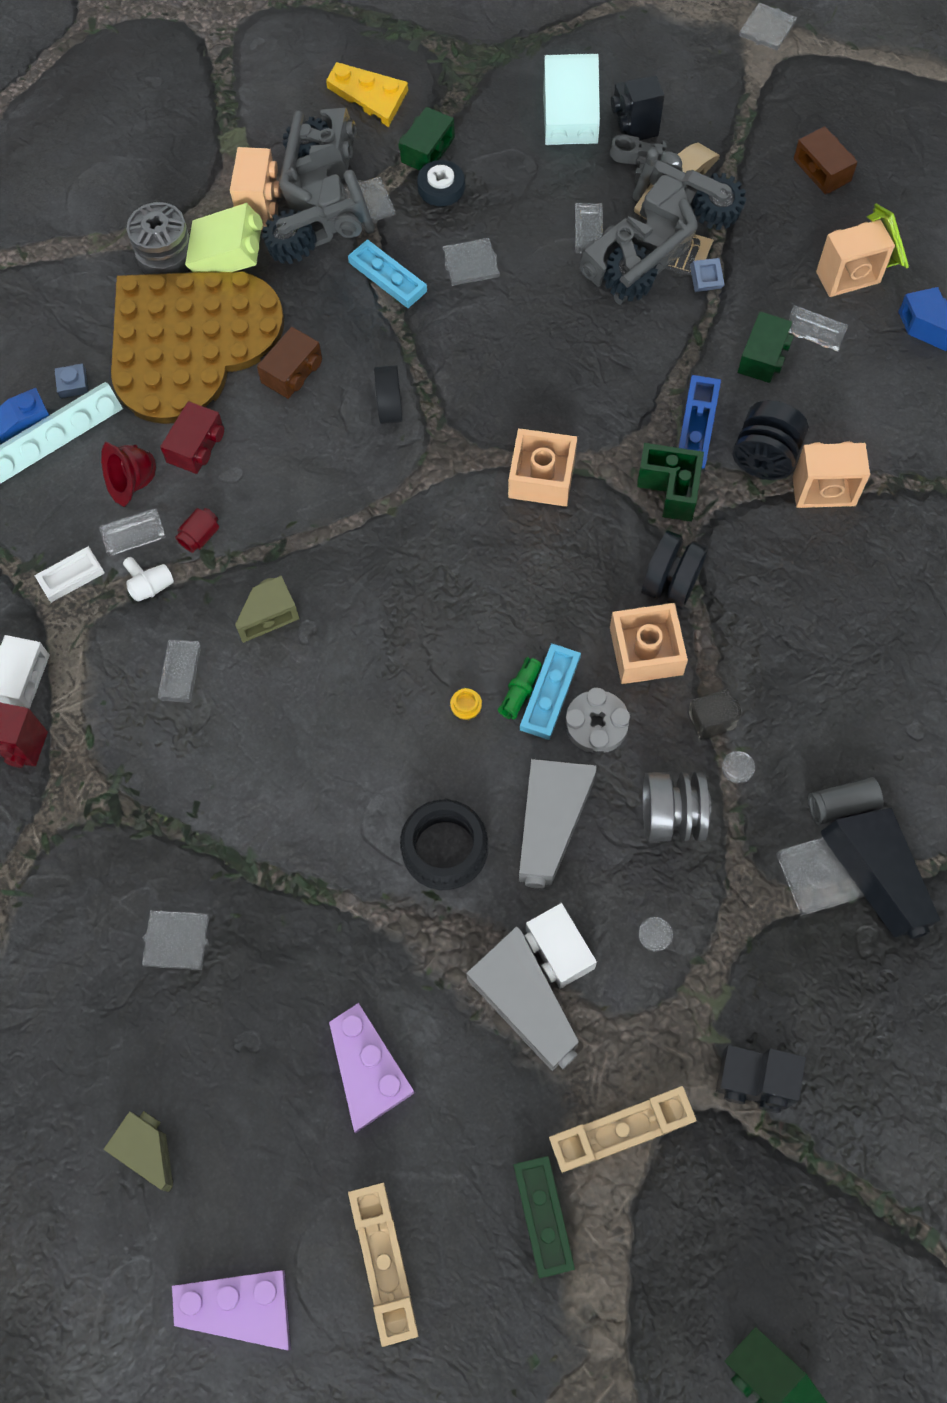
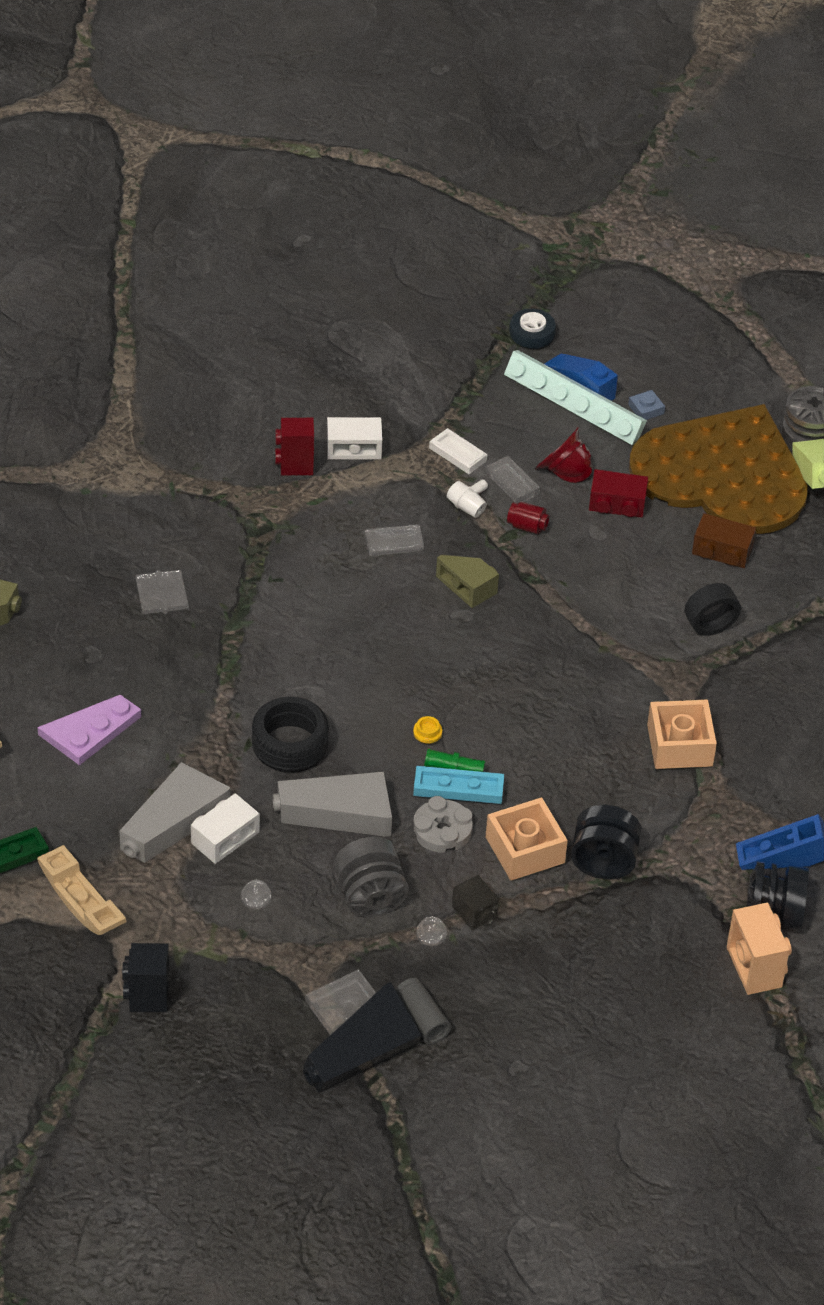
camera: 70 degrees right, 20 degrees down
(676, 473) = (708, 837): dark green brick -> none

